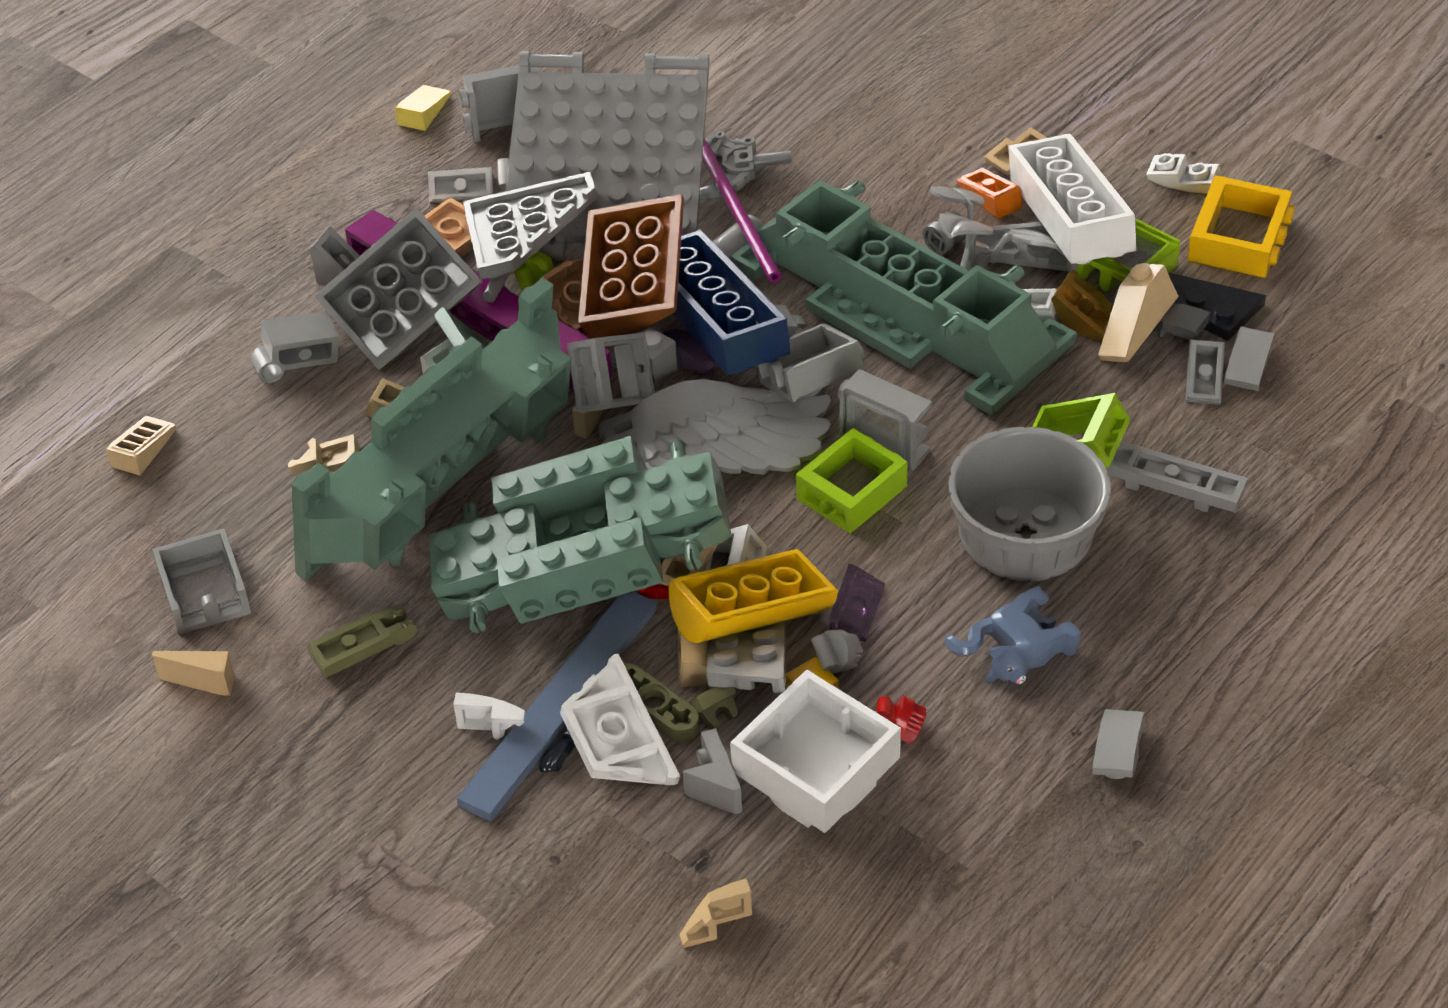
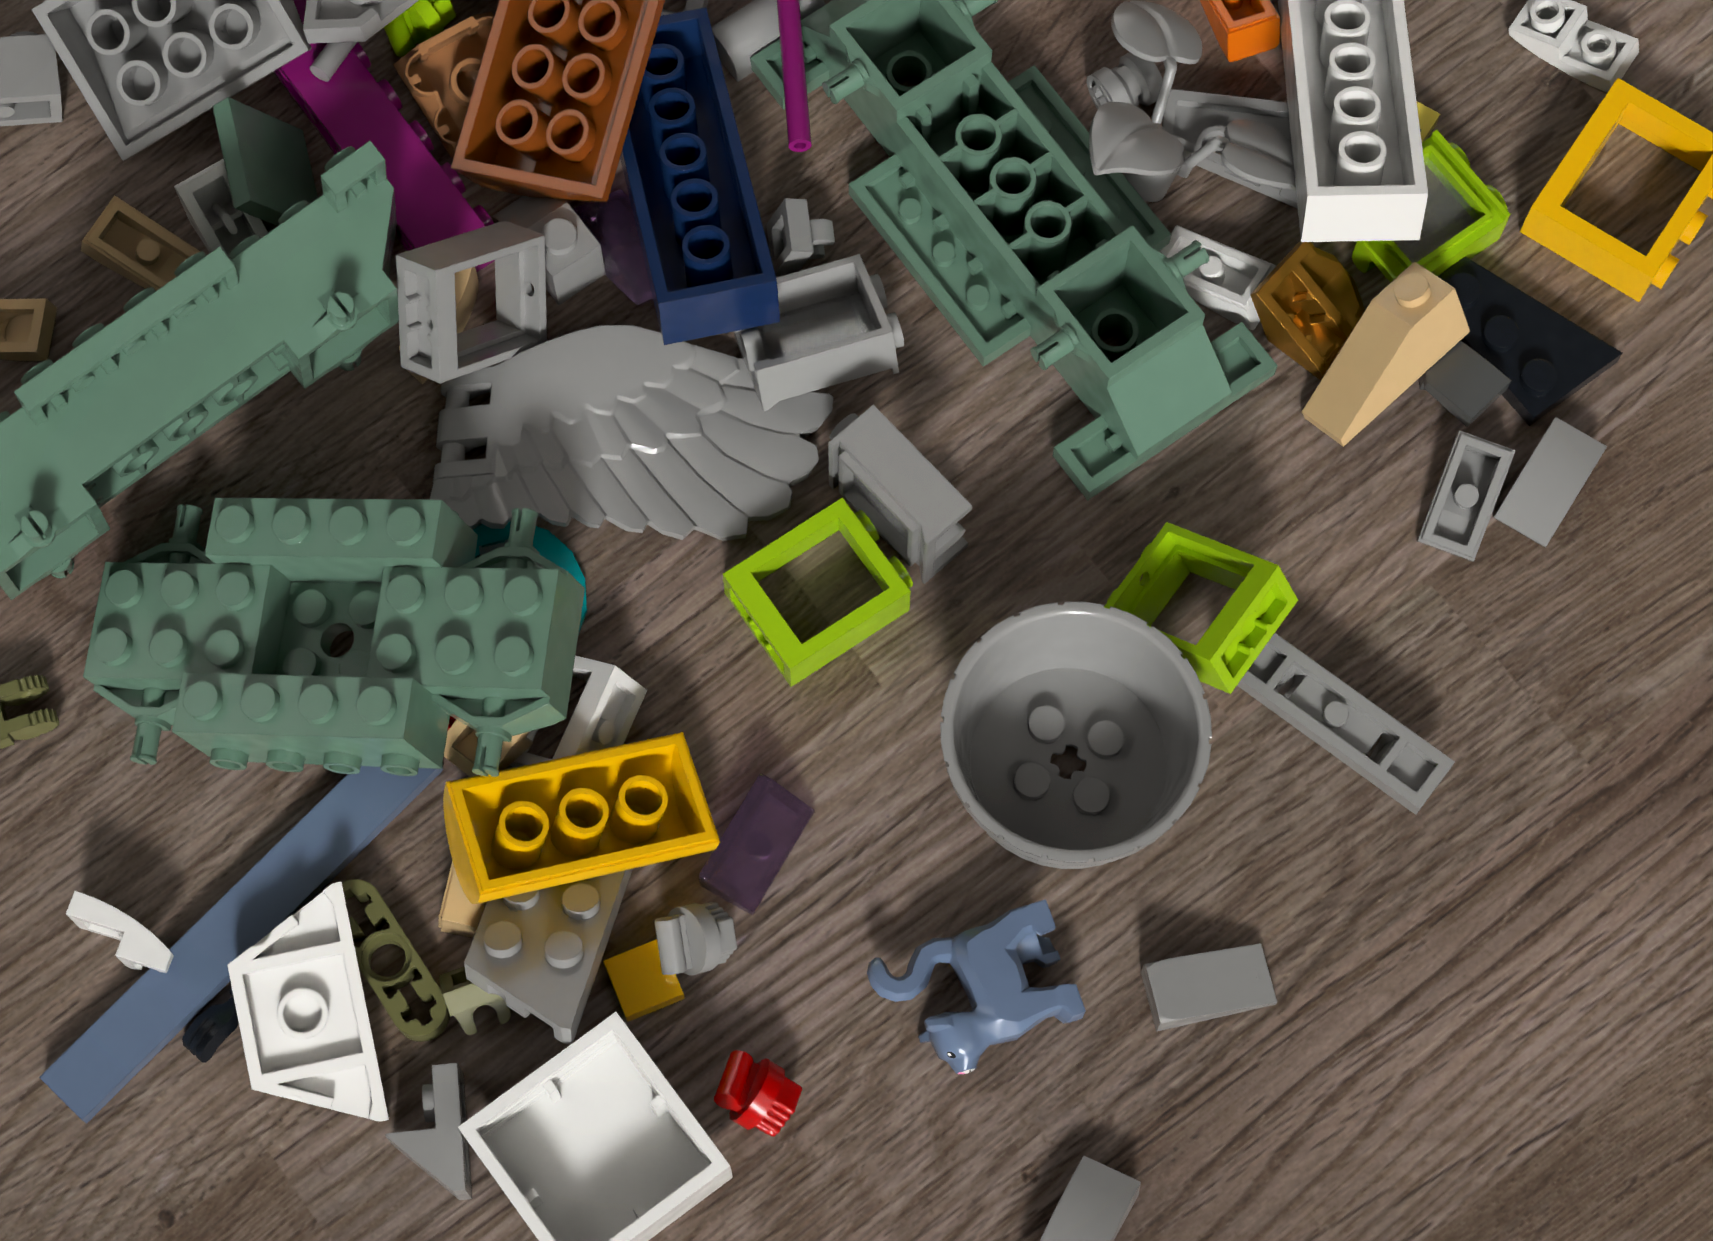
camera: 10 degrees right, 25 degrees up
(1144, 619) = (1207, 985): none -> light grey slope

